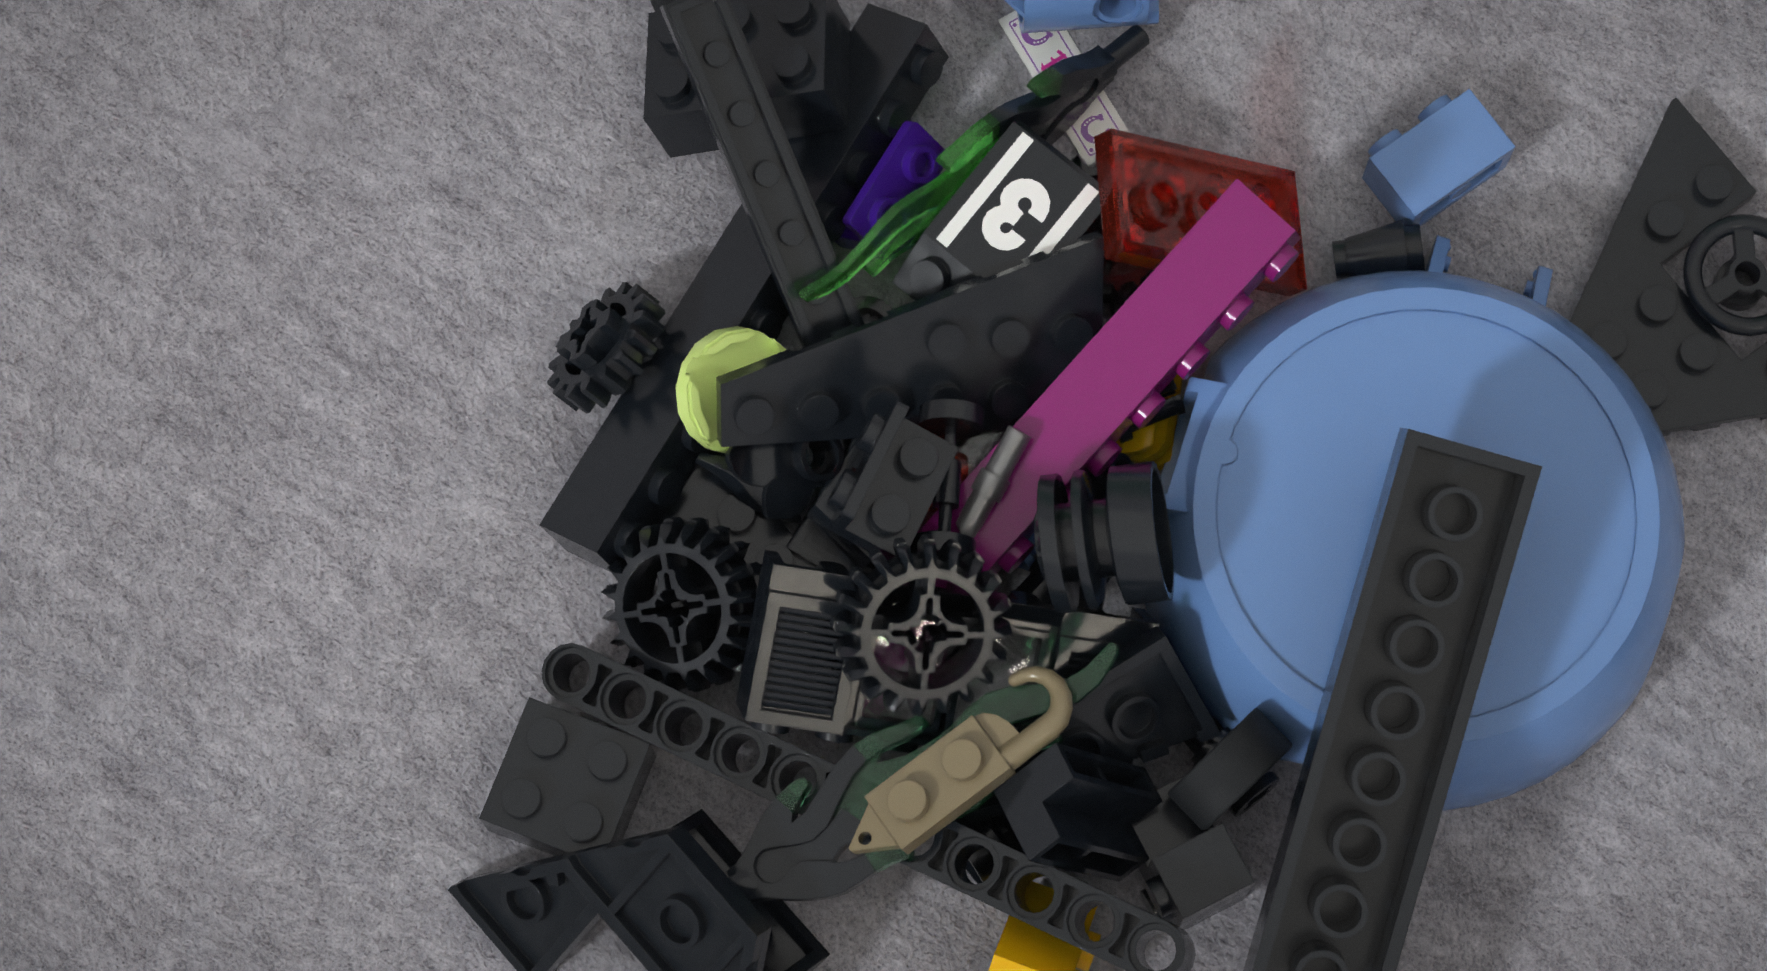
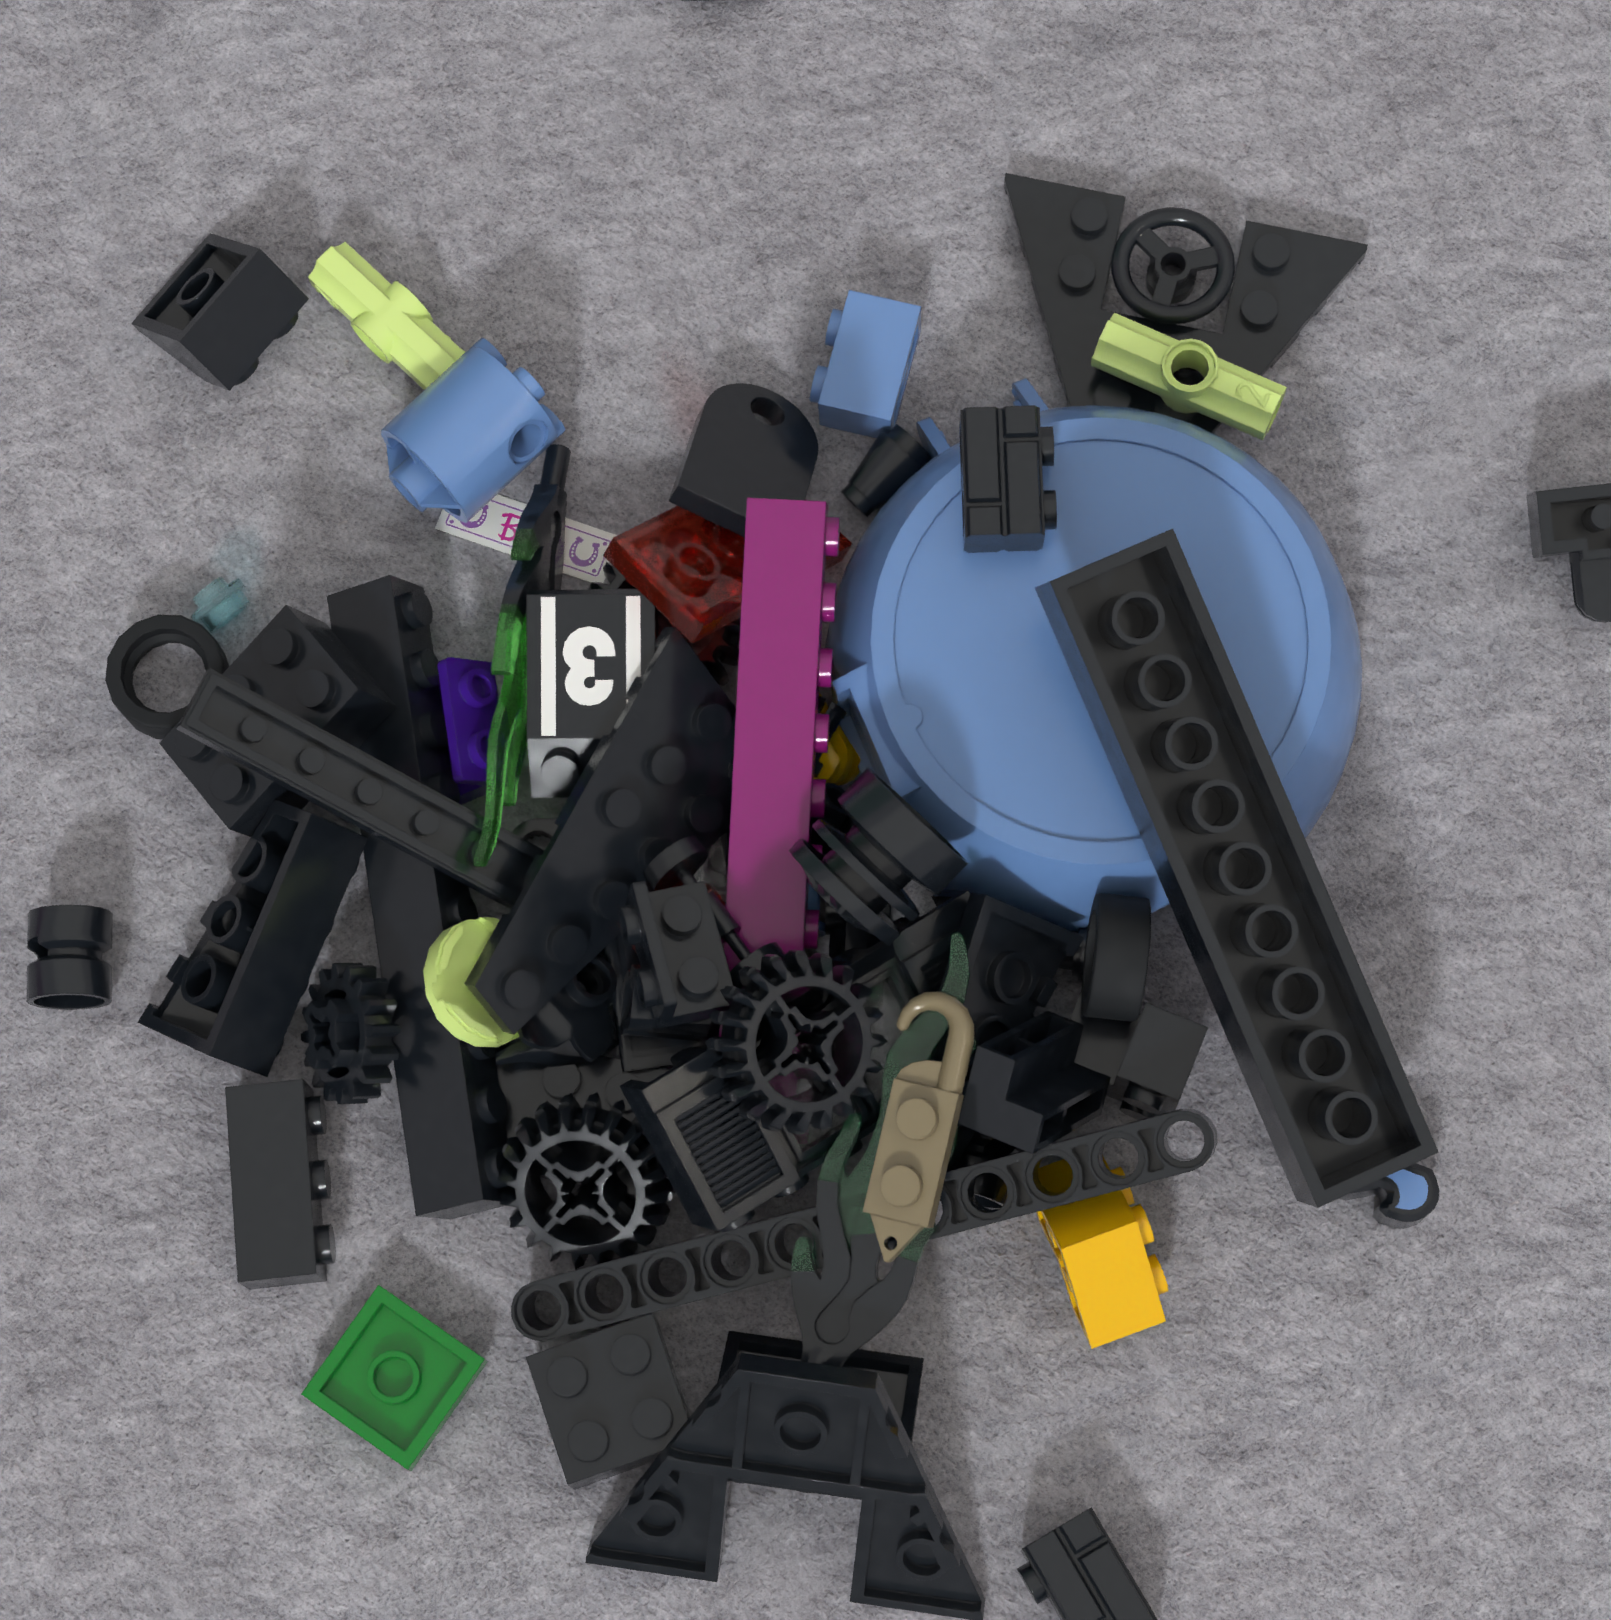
camera: 35 degrees left, 0 degrees up
(424, 633) = (394, 1378): none -> green plate
(451, 121) = (69, 957): none -> black wheel
(461, 417) = (278, 1184): none -> black brick
(600, 224) = (260, 941): none -> black wedge
(992, 481) = (750, 887): flat silver piece -> none
(1275, 151) = (742, 458): none -> black tile
(1451, 326) = (1004, 479): none -> black brick
(1697, 406) = (1151, 358): none -> yellowish green piece

